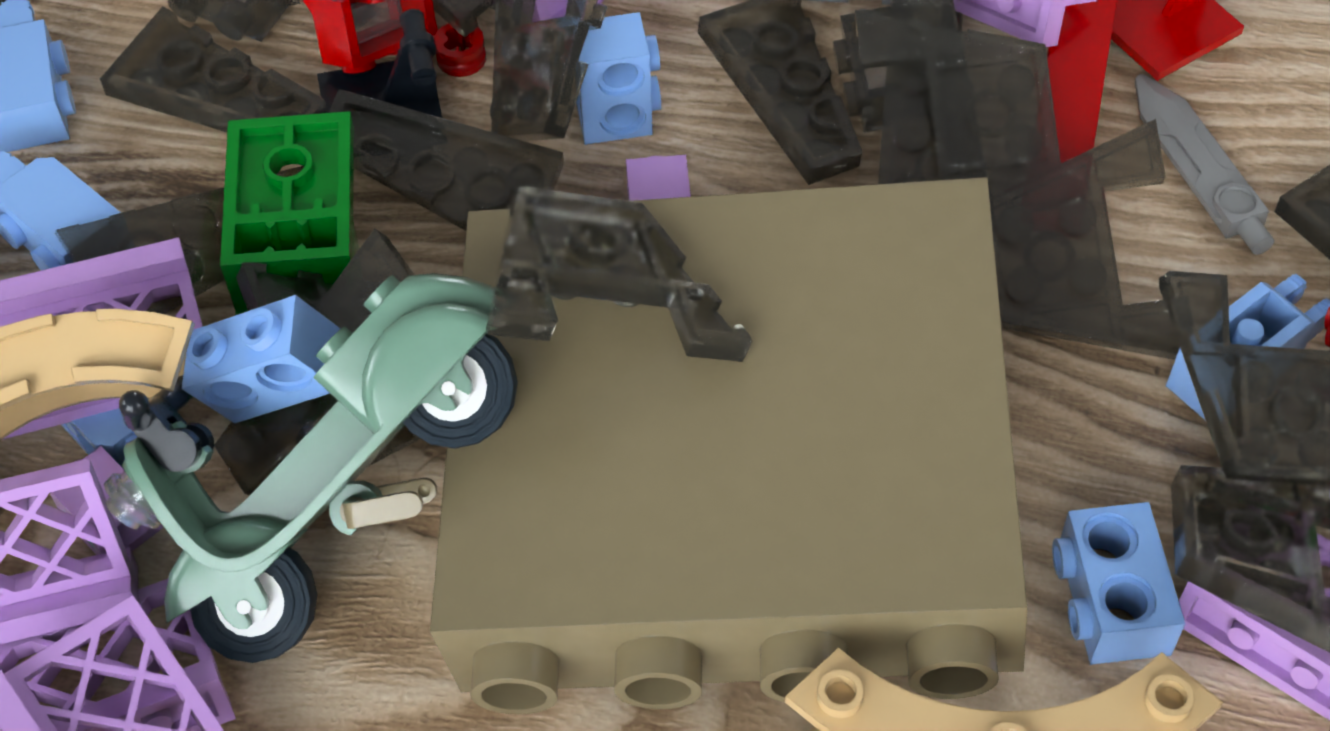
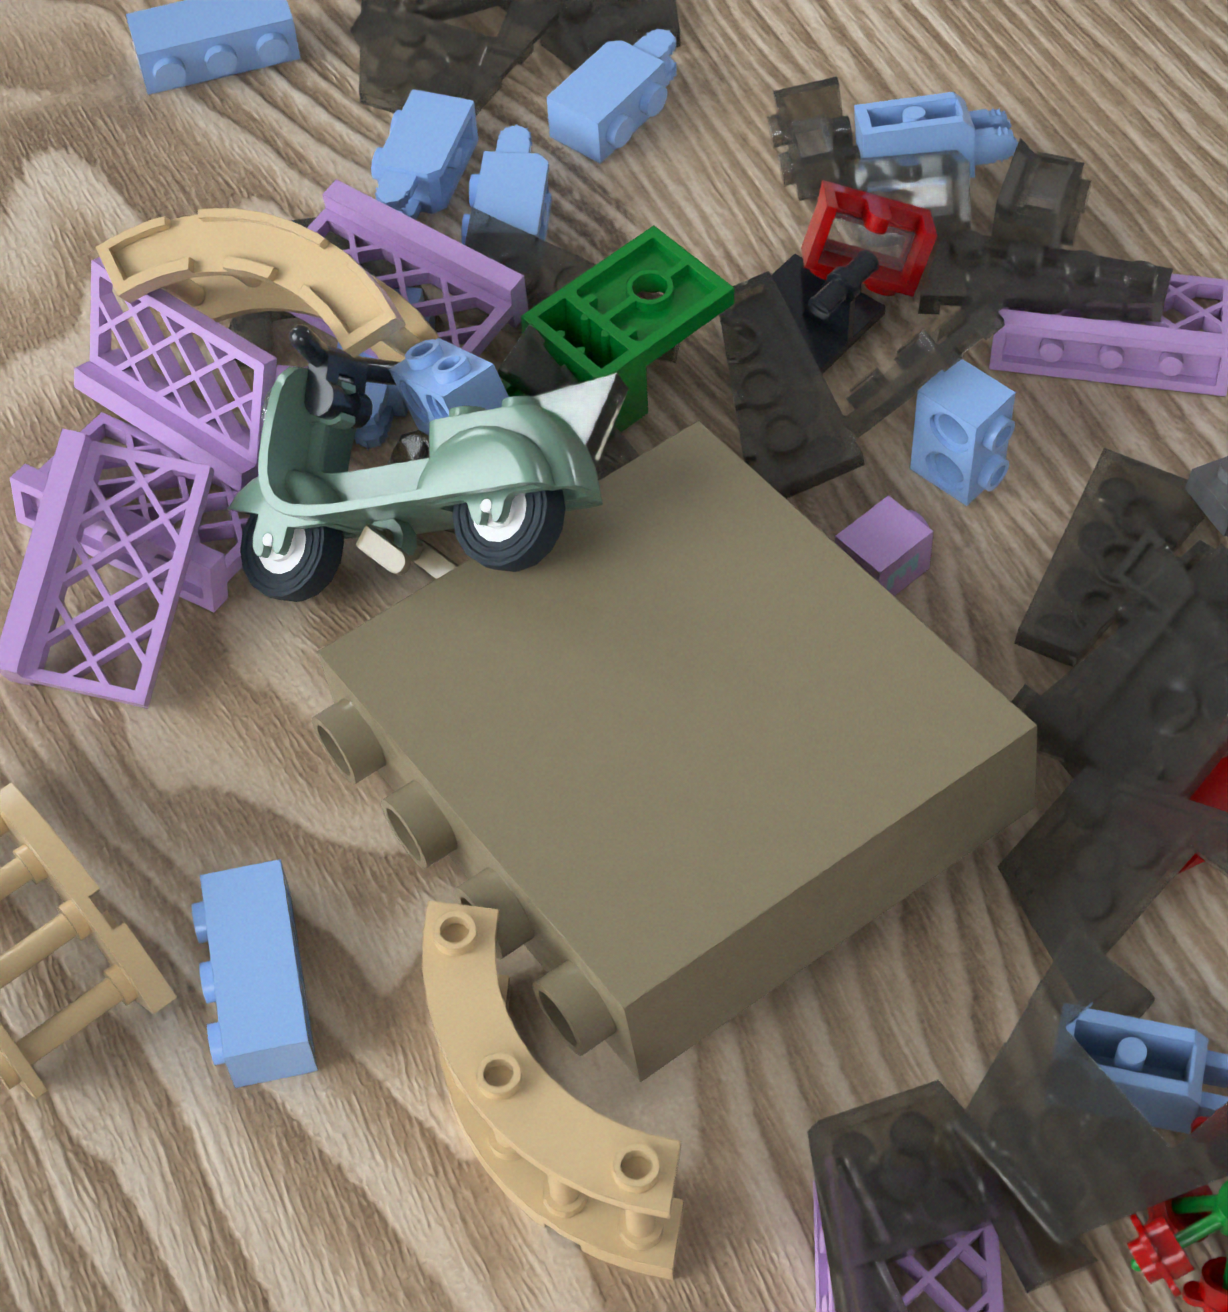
camera: 55 degrees right, 0 degrees up
(200, 81) = (717, 194): clear smoke wing -> none
(458, 62) = (903, 312): red bush -> none
(600, 251) = (696, 510): clear smoke wing -> none
(1131, 582) = (787, 1102): light blue brick -> none

